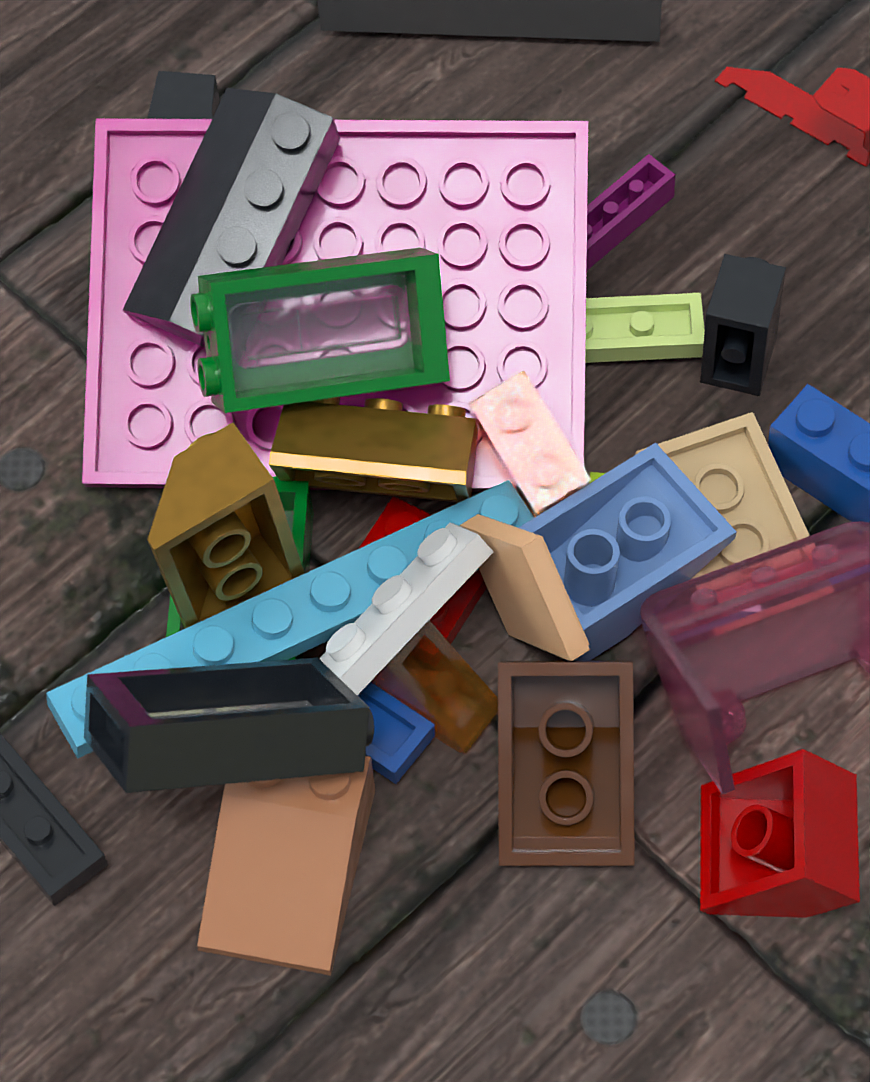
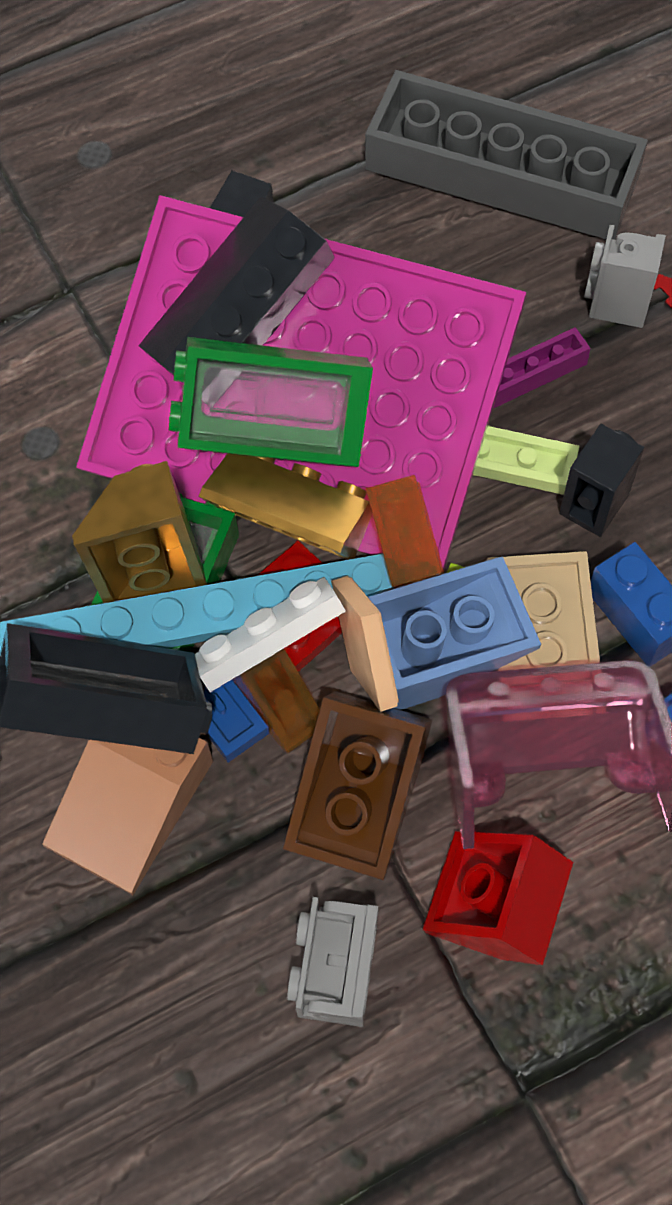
camera: 15 degrees right, 5 degrees up
(612, 973) = (335, 962): none -> light grey hinge
(690, 79) = (624, 277): none -> light grey hinge

